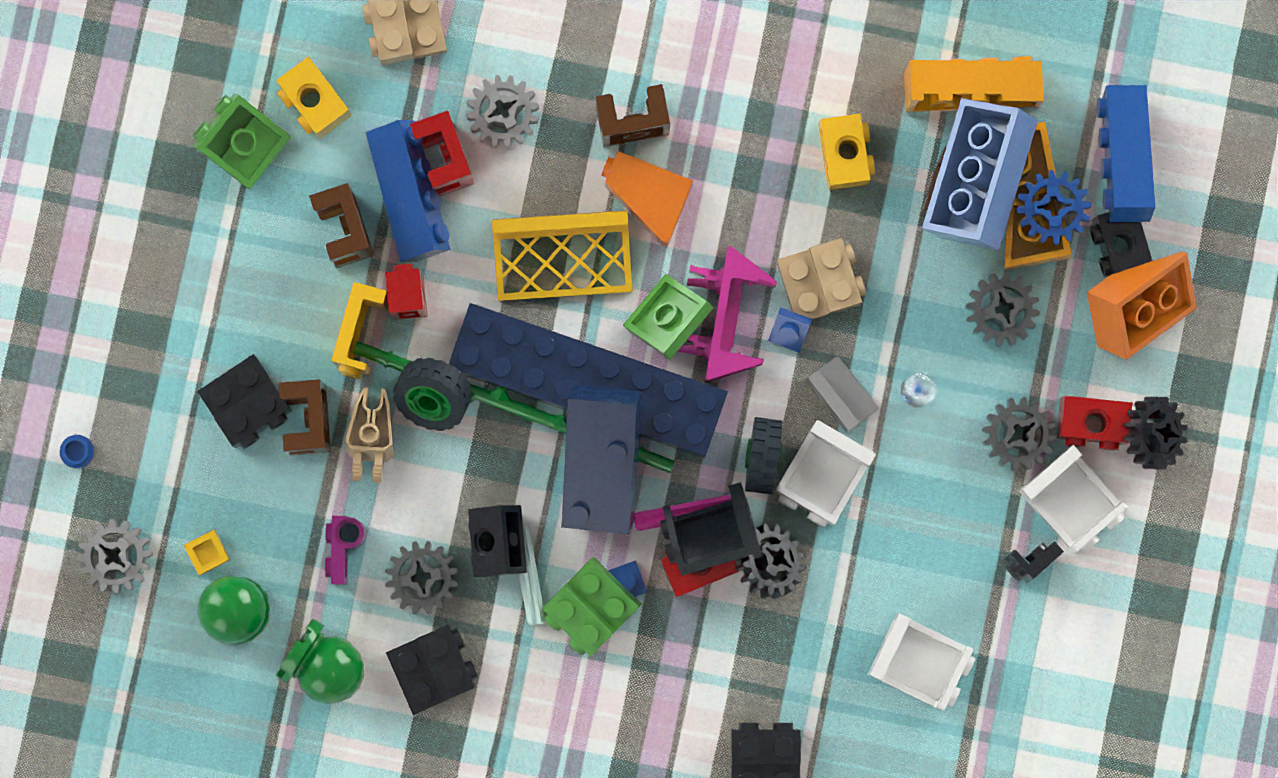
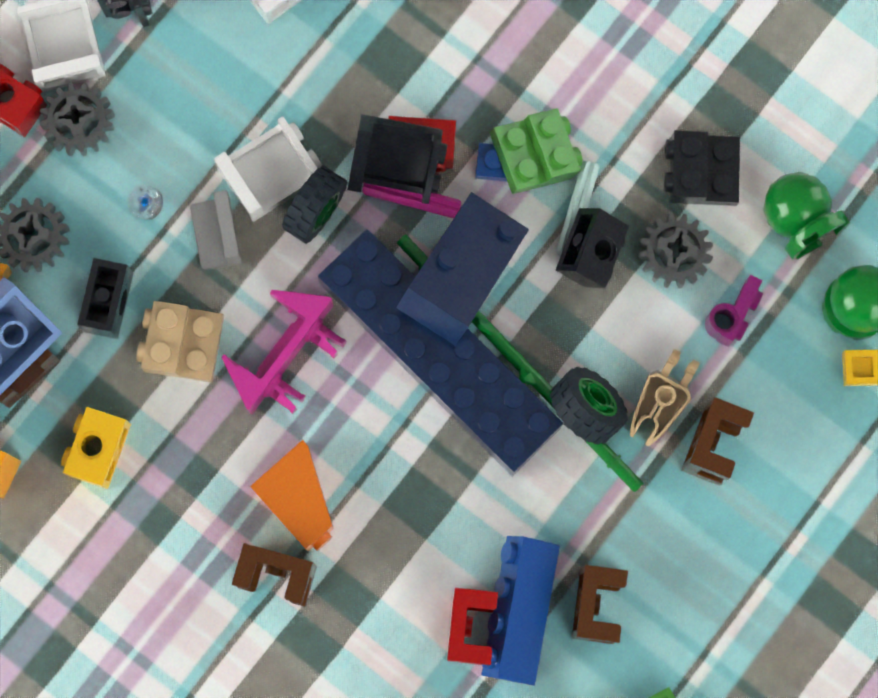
camera: 150 degrees left, 5 degrees down
(245, 402) = (765, 488): black plate -> none
(359, 300) = (609, 528): yellow panel -> none
(406, 292) = (568, 511): red brick -> none
(489, 118) = (393, 626): light grey gear -> none
(558, 226) = (398, 511): yellow fence -> none
(668, 316) = (337, 373): bright green plate -> none
(774, 562) = (348, 106): black gear -> none
(789, 330) = (232, 310): blue plate -> none
(905, 282) = (105, 298): none -> black brick

